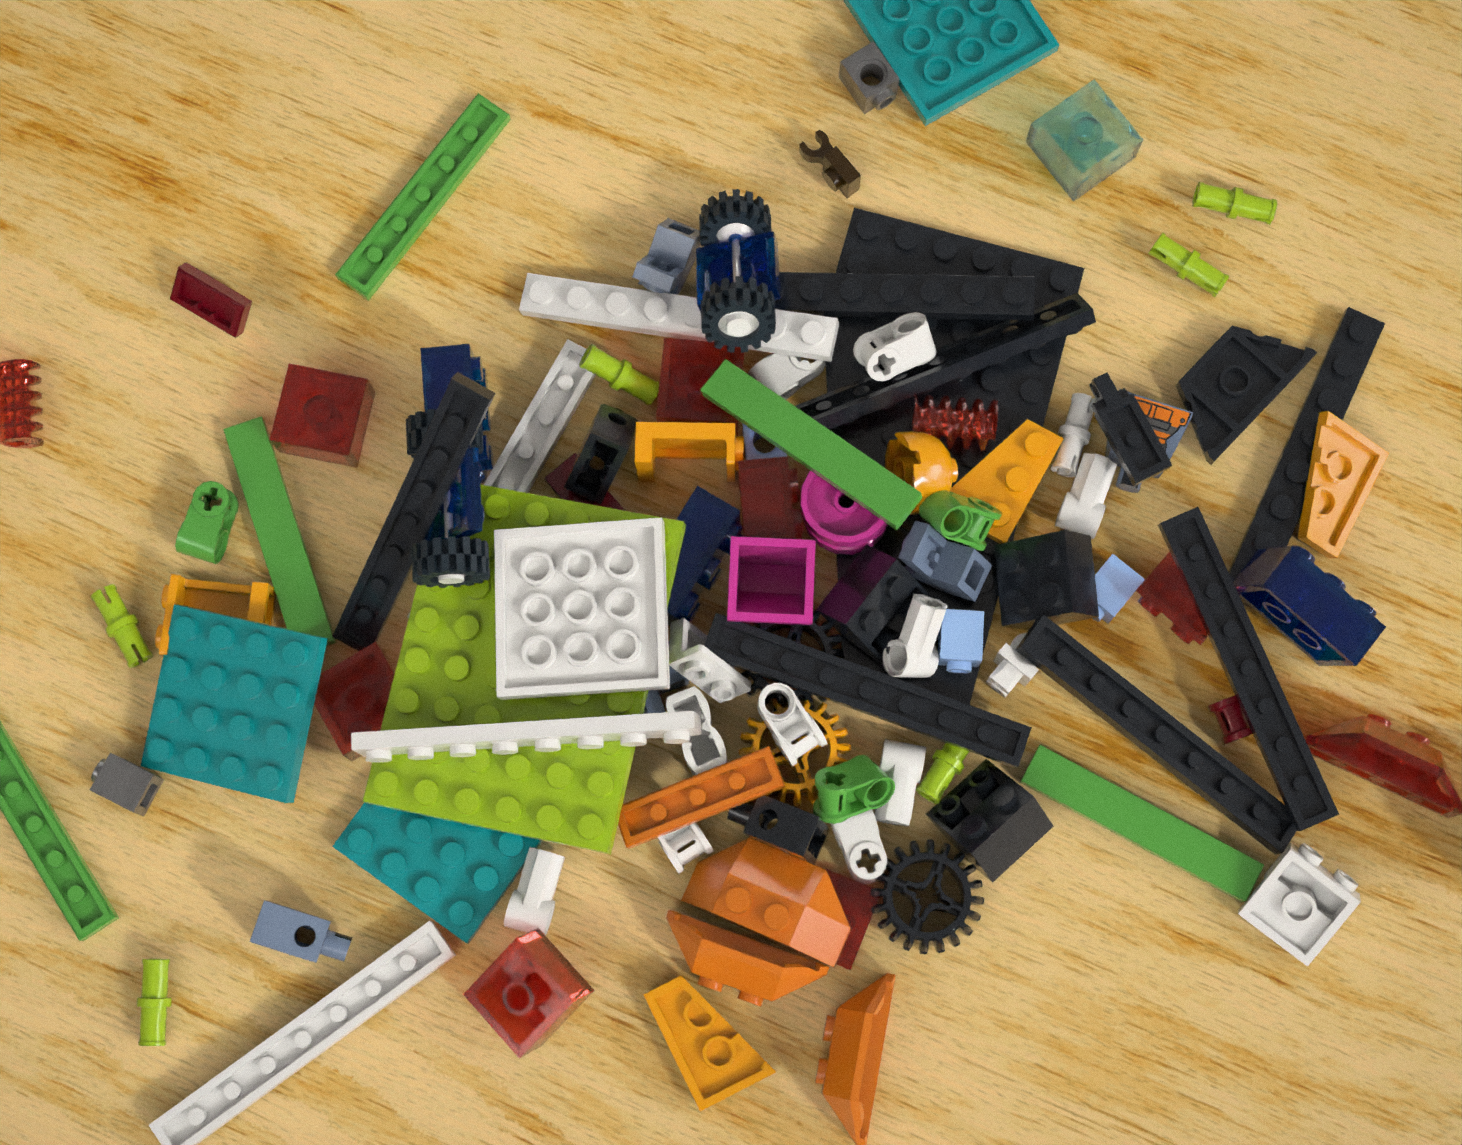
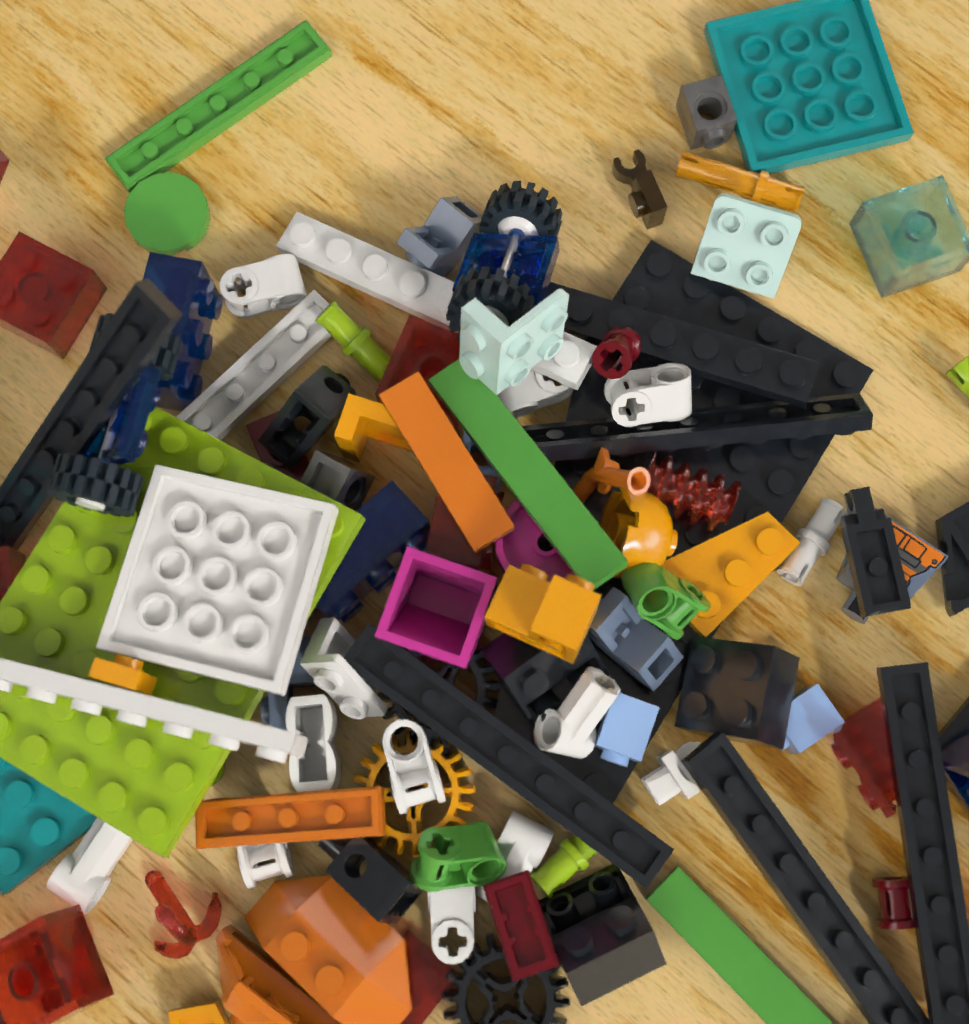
camera: 15 degrees right, 0 degrees up
(409, 308) = (167, 213): none -> bright green tile
(525, 346) = (268, 286): none -> white piece
(527, 709) = (123, 673): none -> light orange plate
(626, 915) = (176, 919): none -> clear red piece
(644, 498) = (338, 479): none -> flat silver brick
(740, 455) = (447, 462): none -> orange tile
(760, 349) = (506, 354): none -> light aqua bracket
(856, 330) = (613, 365): none -> dark red bush
(864, 558) = (542, 612): none -> light orange brick
(880, 427) = (607, 474): none -> orange piece
(922, 828) = (521, 925): none -> dark red plate
(928, 132) = (740, 181): none -> light orange pin
(940, 191) = (746, 245): none -> light aqua bracket
(1083, 505) = (800, 620): white piece -> none

